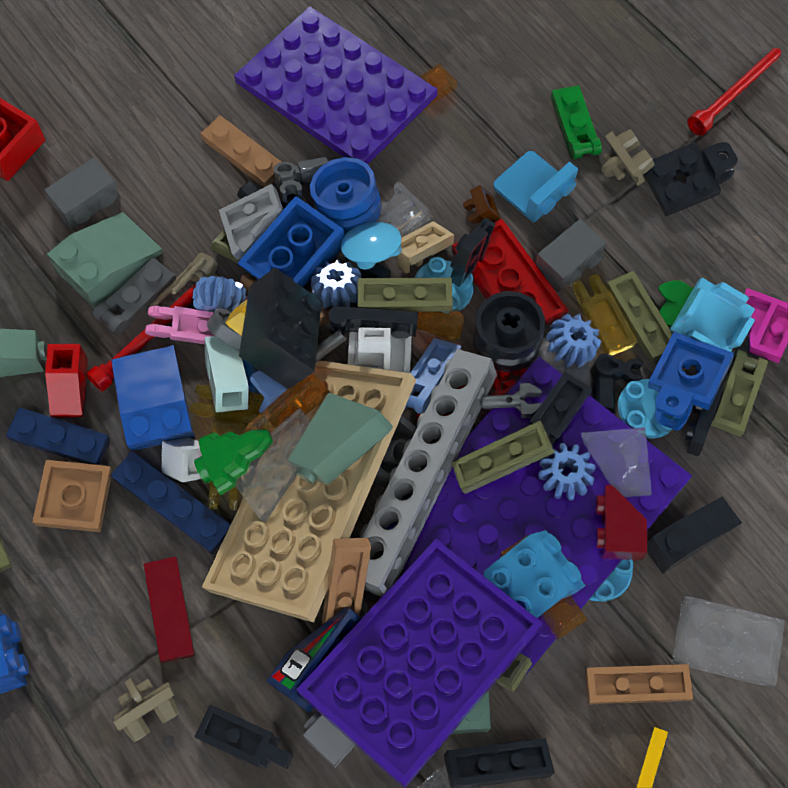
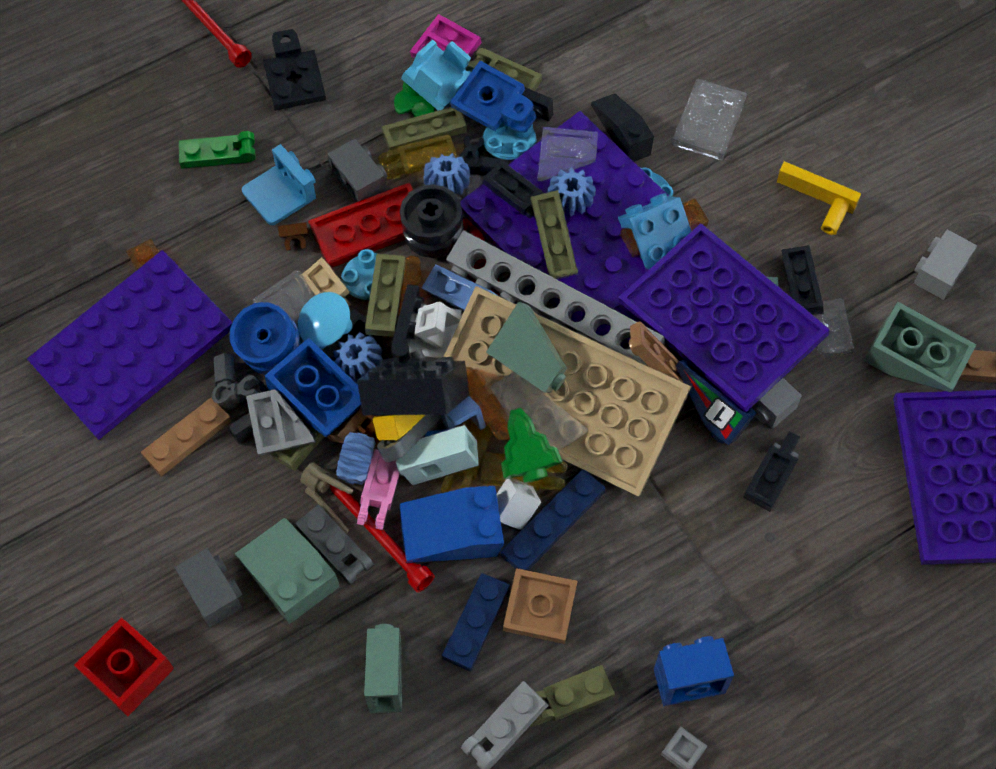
camera: 80 degrees left, 5 degrees down
(66, 379) = (422, 604): red slope -> none
(131, 717) = (741, 548): dark tan hips -> none
(169, 610) = (655, 527): dark red tile -> none
(471, 250) = (354, 235): black plate -> none
(515, 401) = (500, 222): dark grey bar -> none
(621, 147) = (278, 109): dark tan hips -> none
(622, 529) = (622, 160): dark red slope -> none
(638, 684) = (741, 182): medium nougat plate -> none

